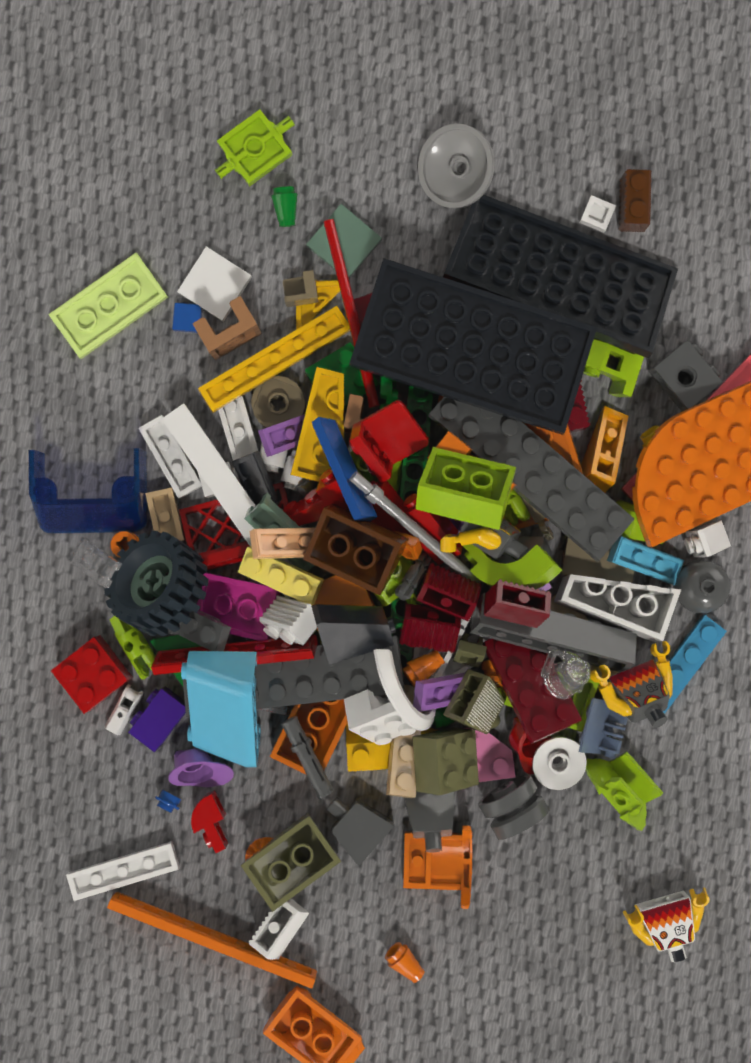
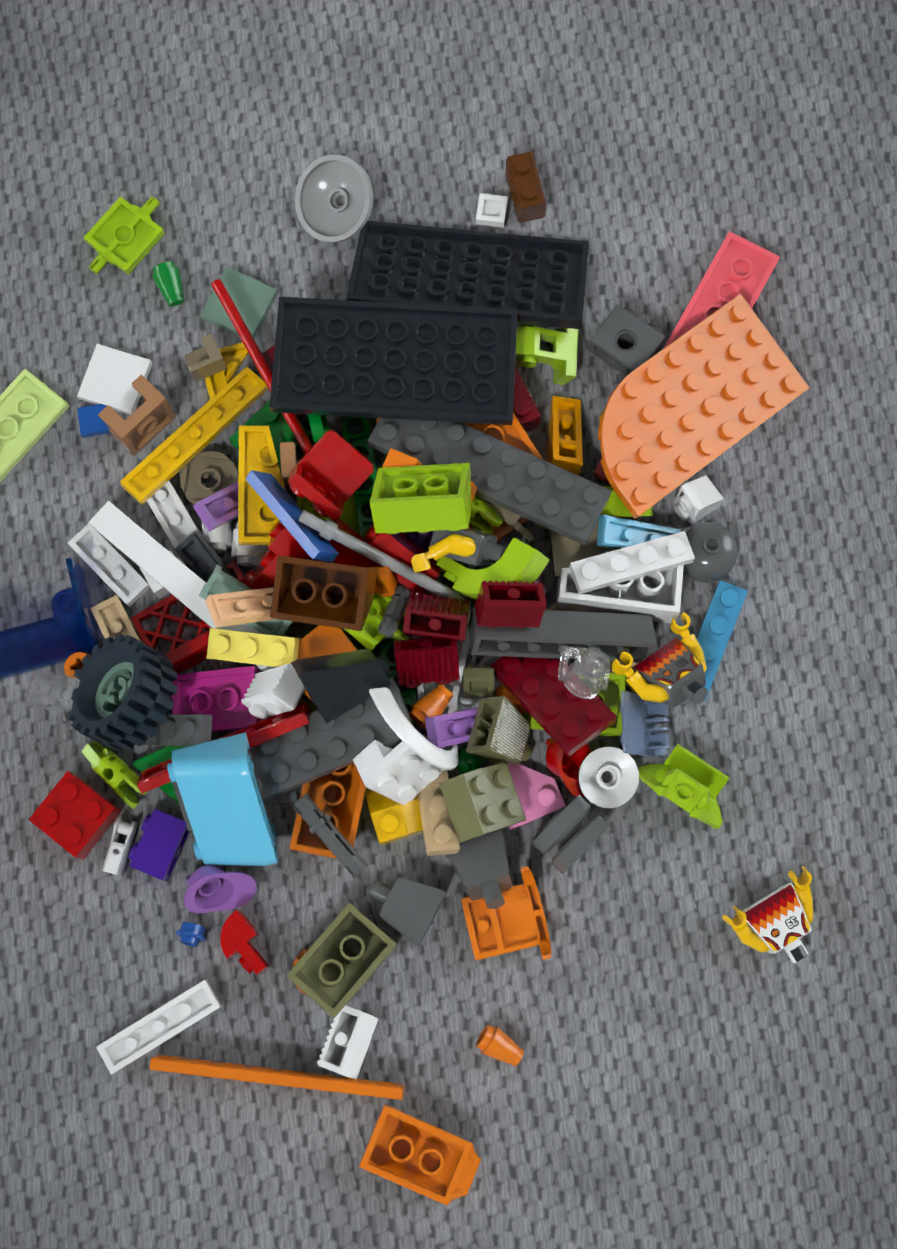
camera: 15 degrees left, 10 degrees down
(633, 585) = (631, 562): none -> white plate

